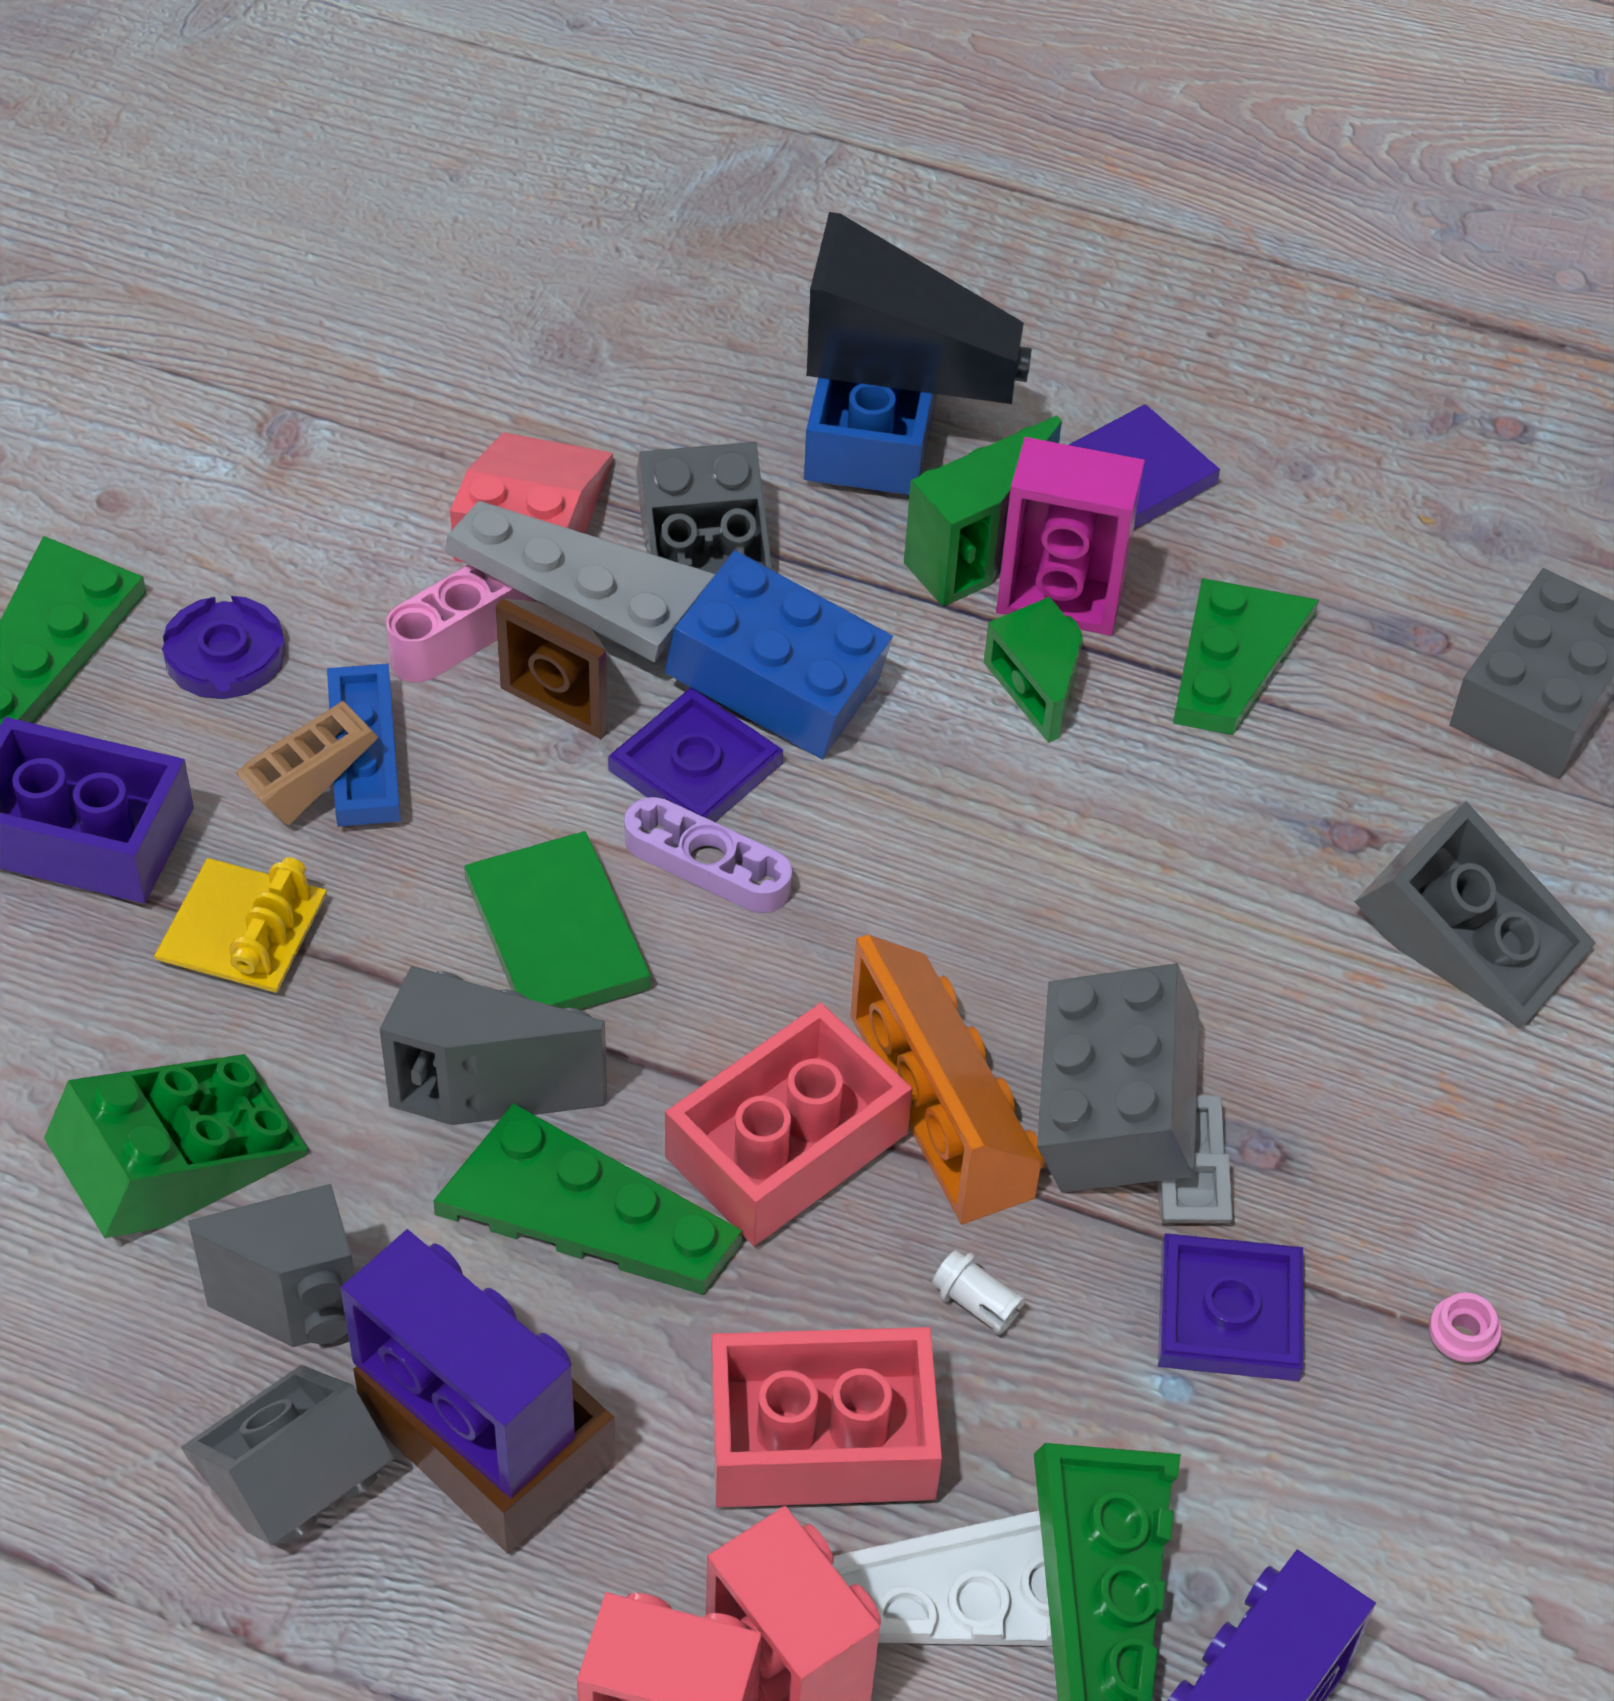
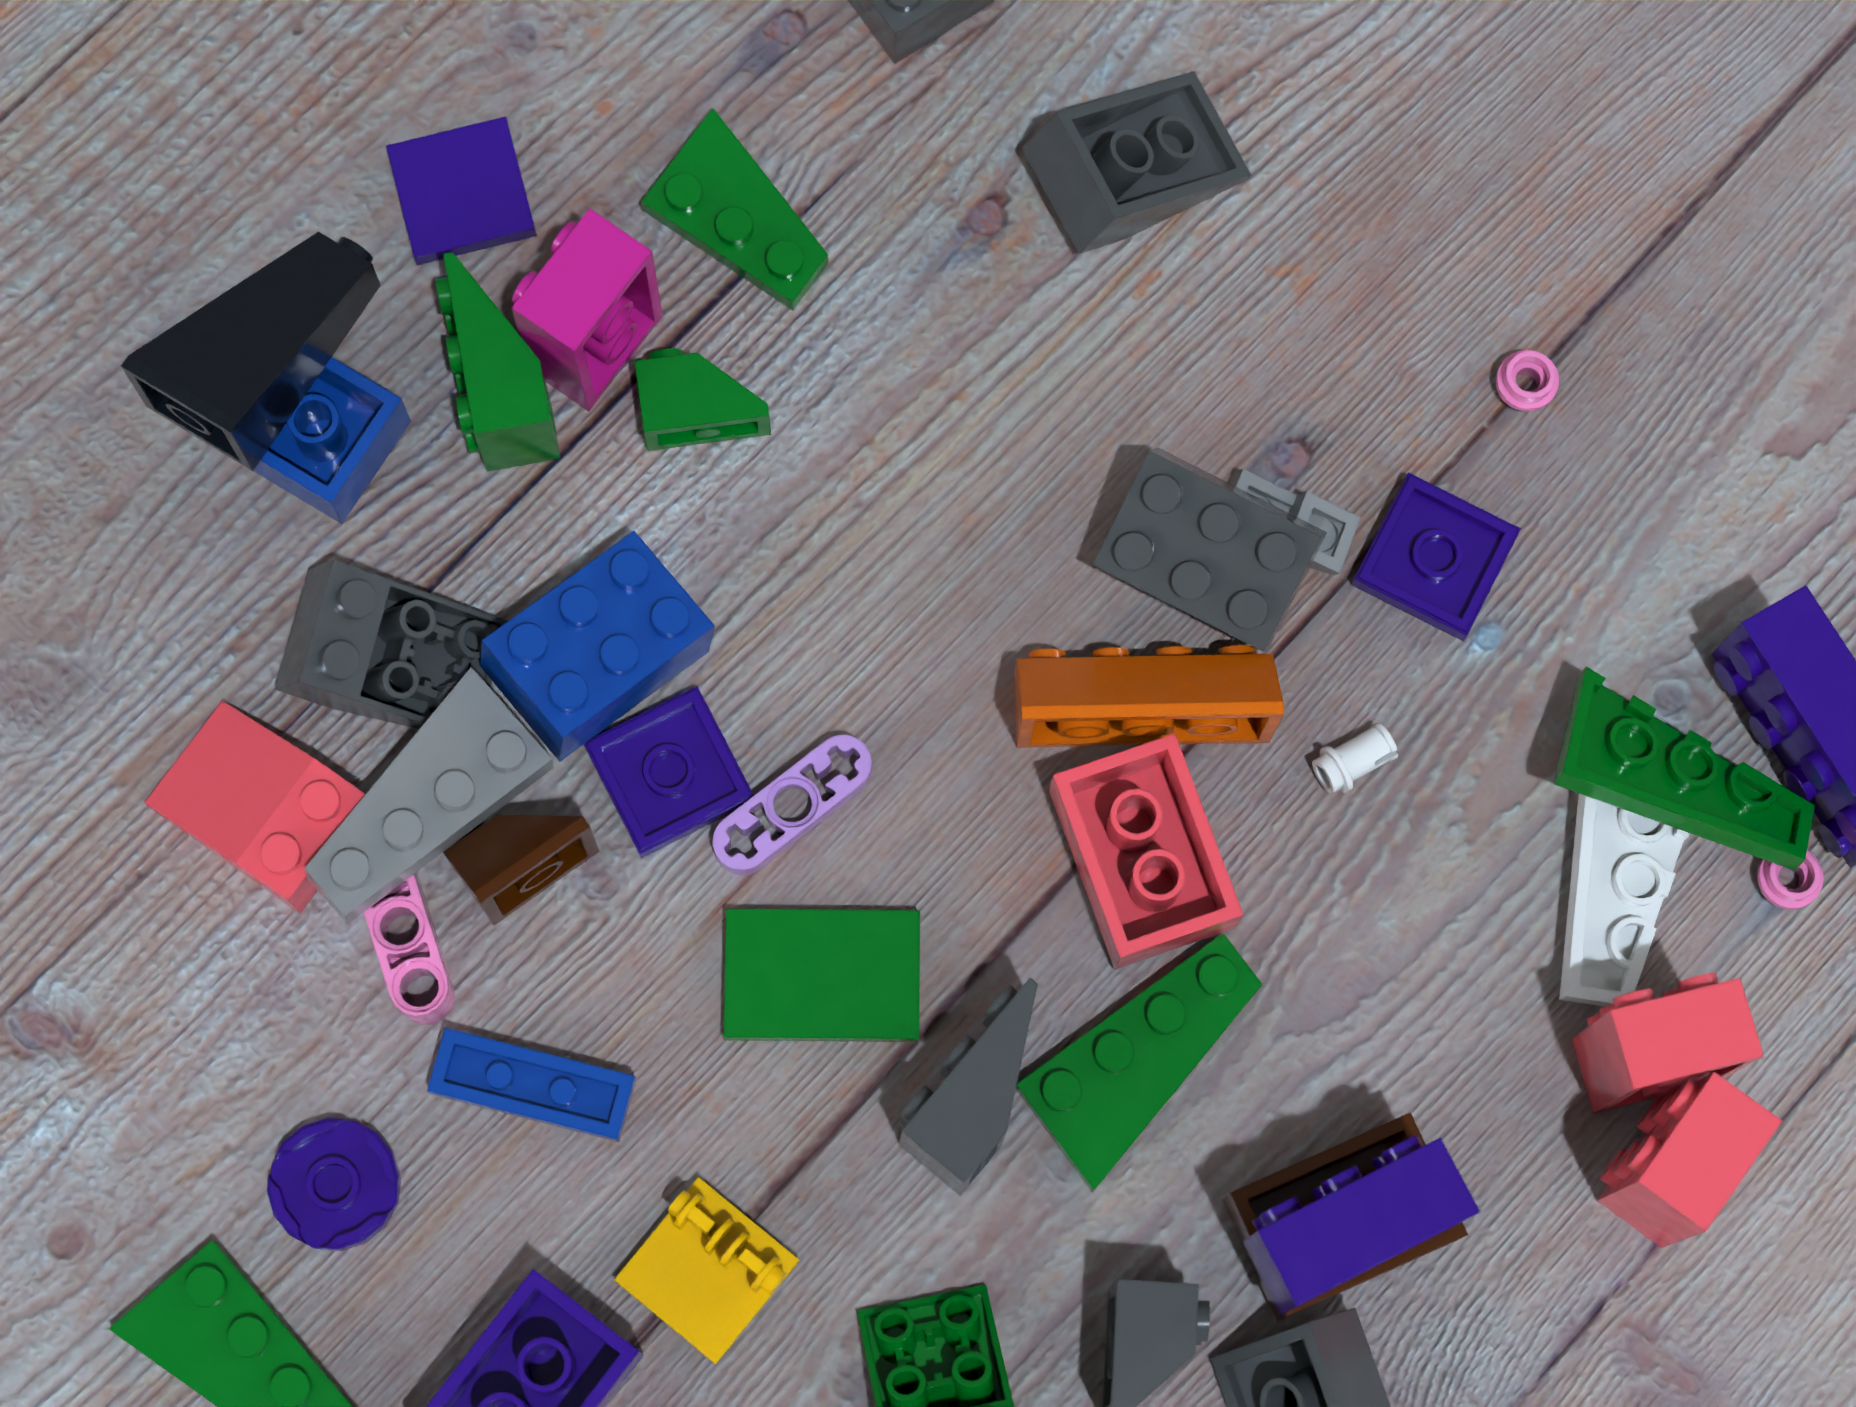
camera: 70 degrees left, 25 degrees up
(295, 768) = (541, 1201): medium nougat slope -> none
(824, 1417) = (1446, 937): coral brick -> none

